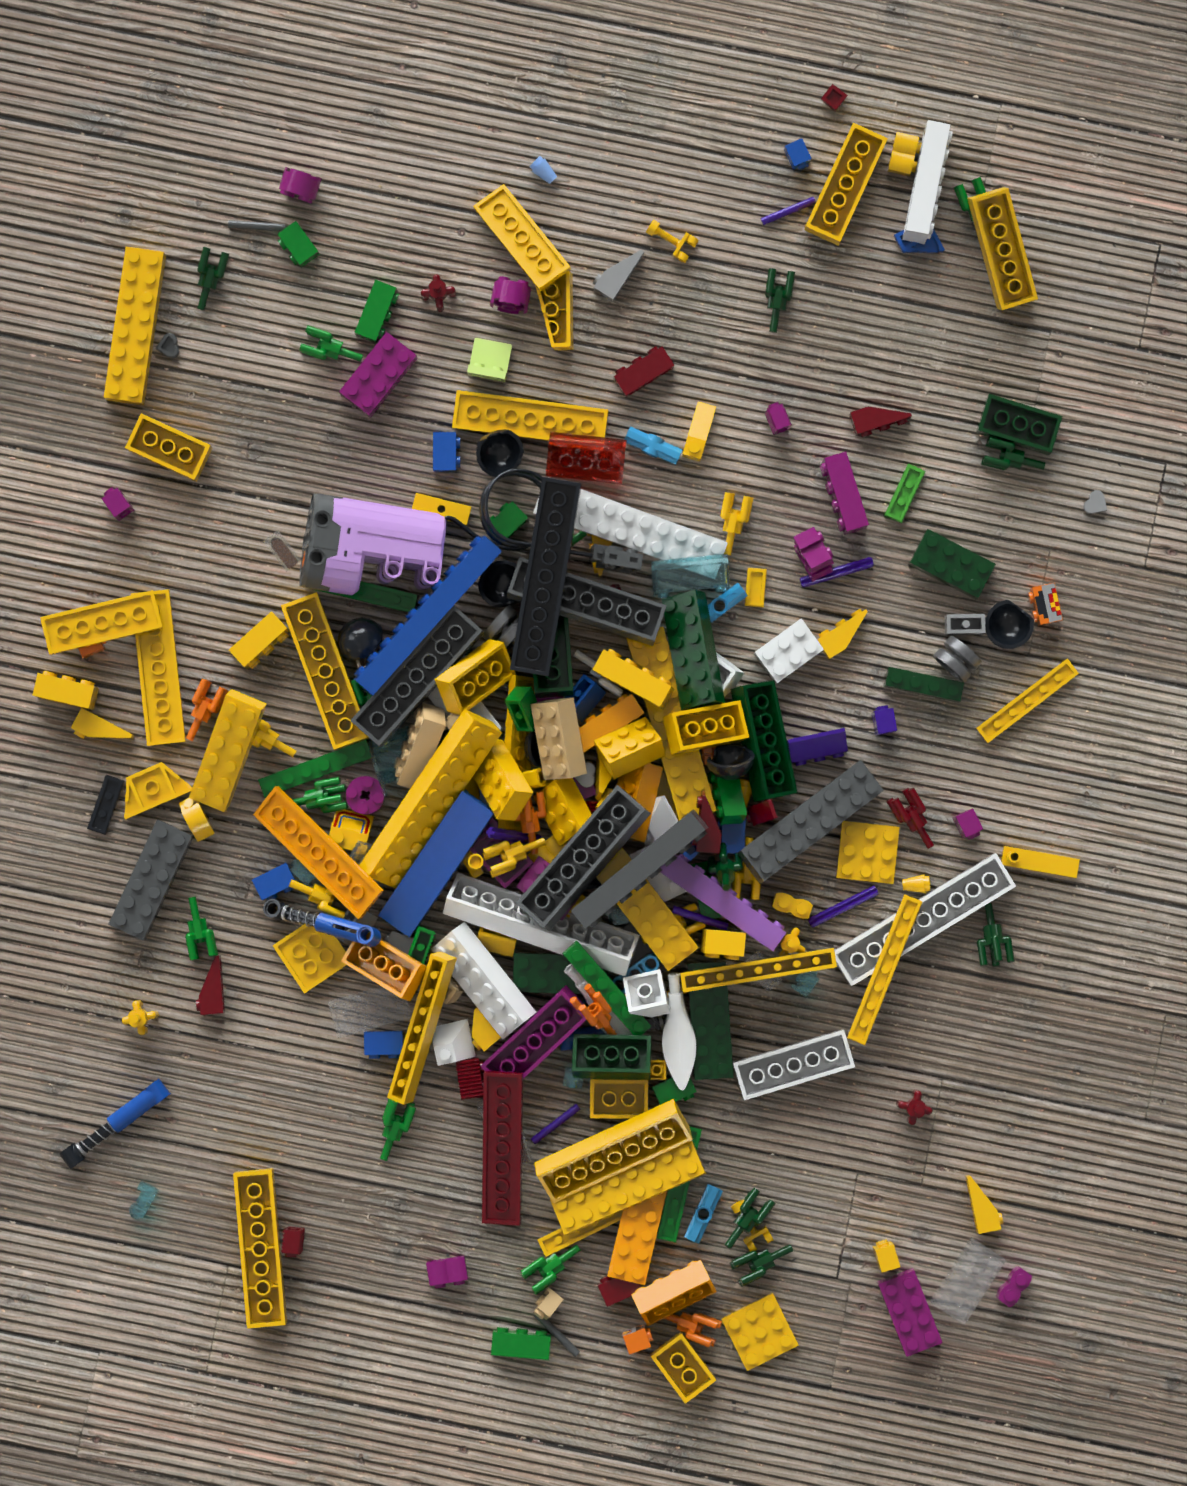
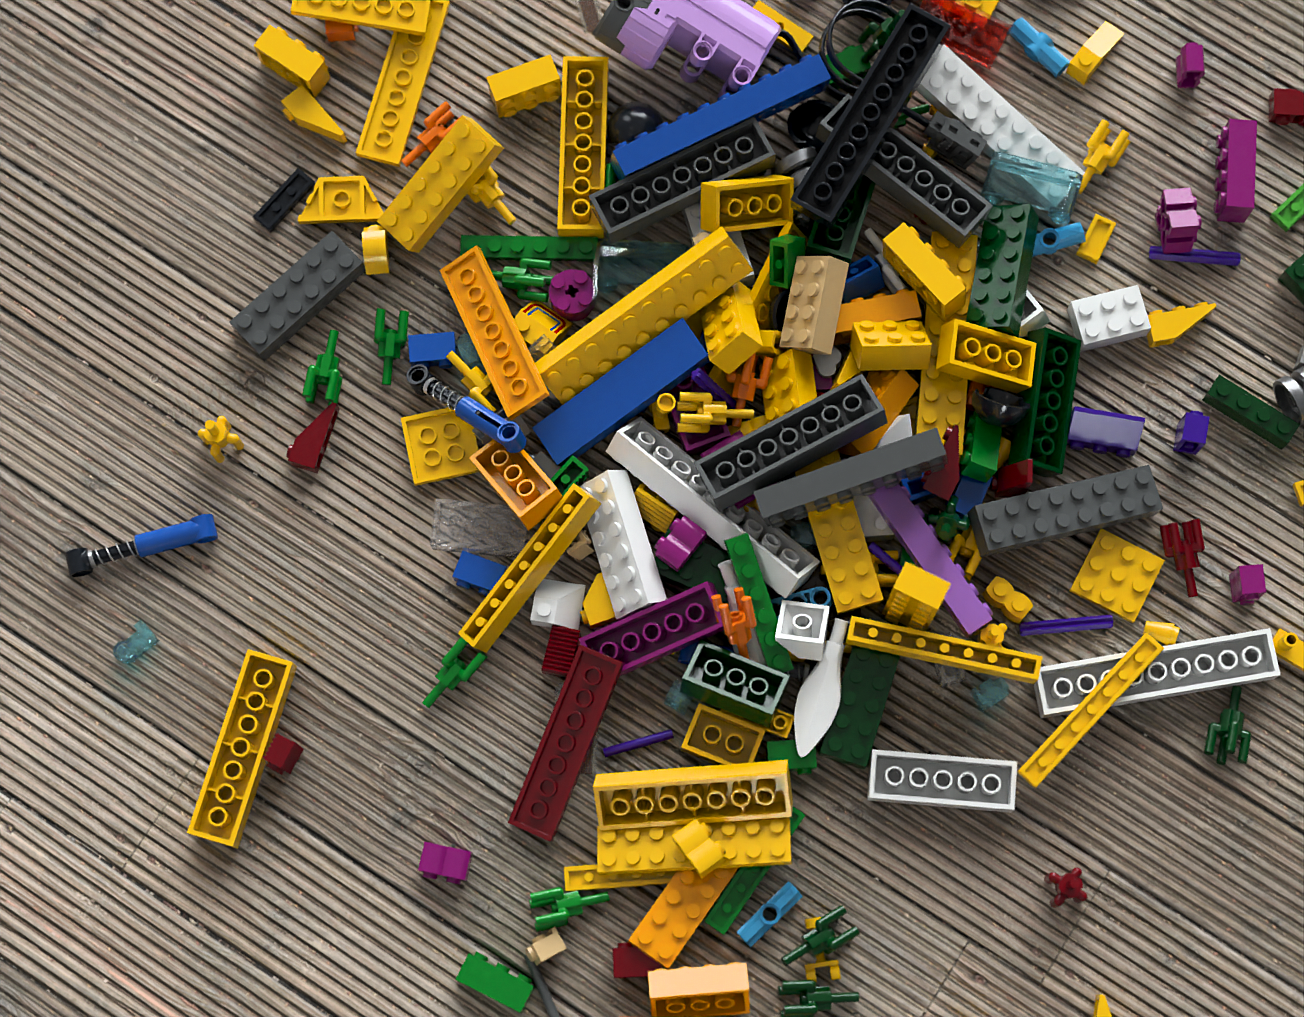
camera: 30 degrees right, 10 degrees down
(238, 887) = (390, 341): none -> green plant
(382, 596) = (656, 80): green plate -> none
(421, 743) = (658, 253): tan brick -> none
(528, 494) = (880, 35): none -> dark green plant
(528, 965) = (680, 543): none -> magenta brick
(633, 1190) = (699, 848): none -> yellow brick

